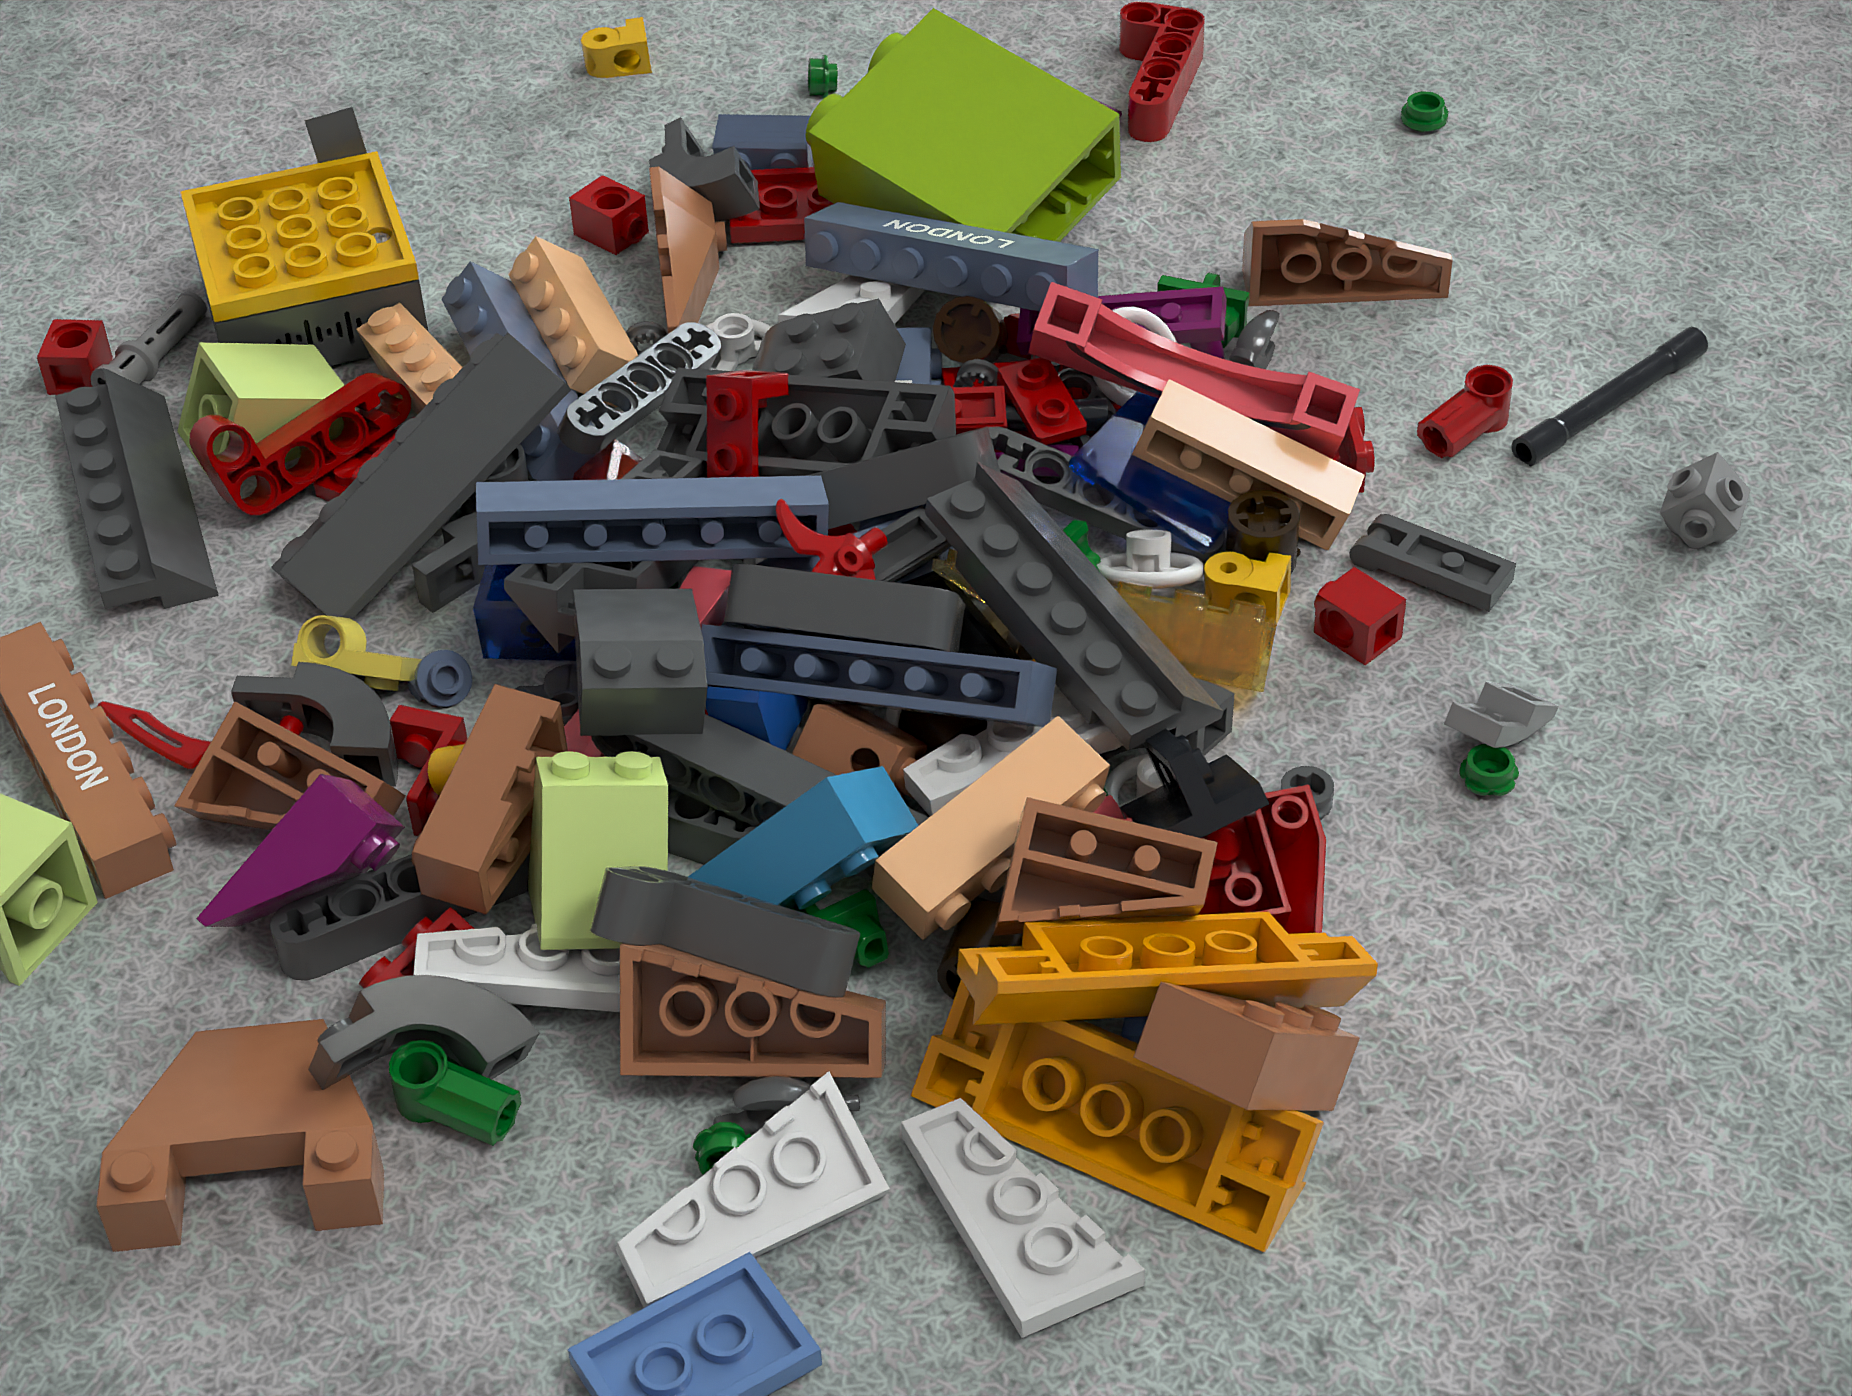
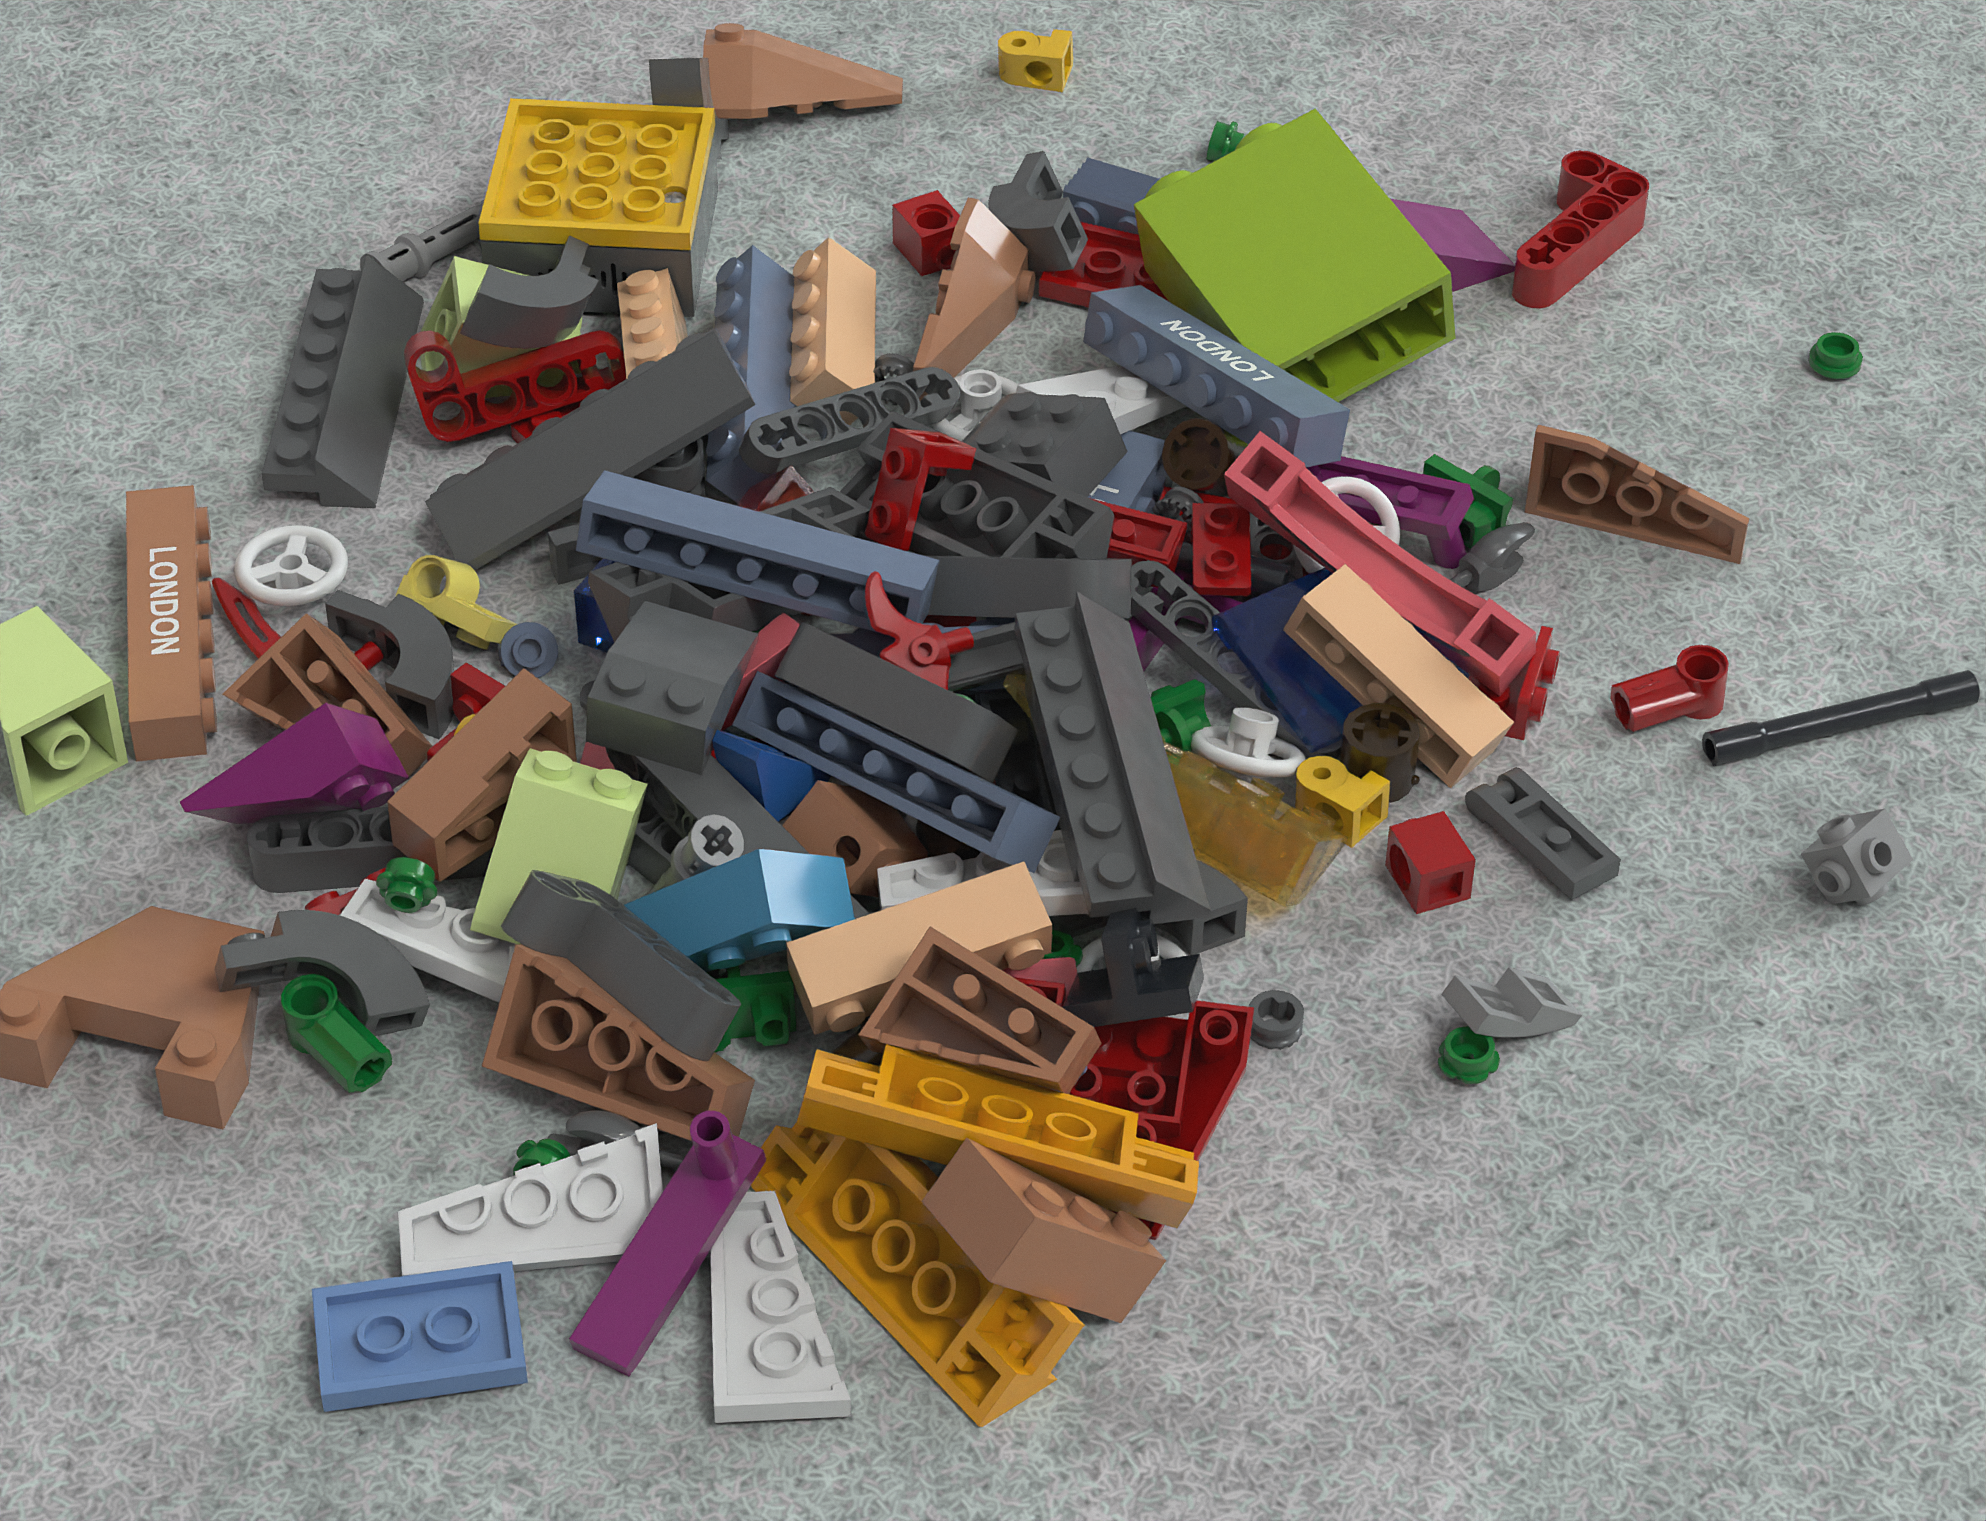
camera: 20 degrees right, 0 degrees up
(72, 354) = (354, 229): red brick -> none
(175, 678) = (291, 576): none -> white piece
(294, 369) = (531, 309): none -> dark grey arch
(408, 116) = (765, 71): none -> nougat wedge
(466, 925) = (407, 884): none -> green plate
(740, 812) = (701, 851): none -> light grey pin
(896, 1184) = (669, 1245): none -> magenta piece

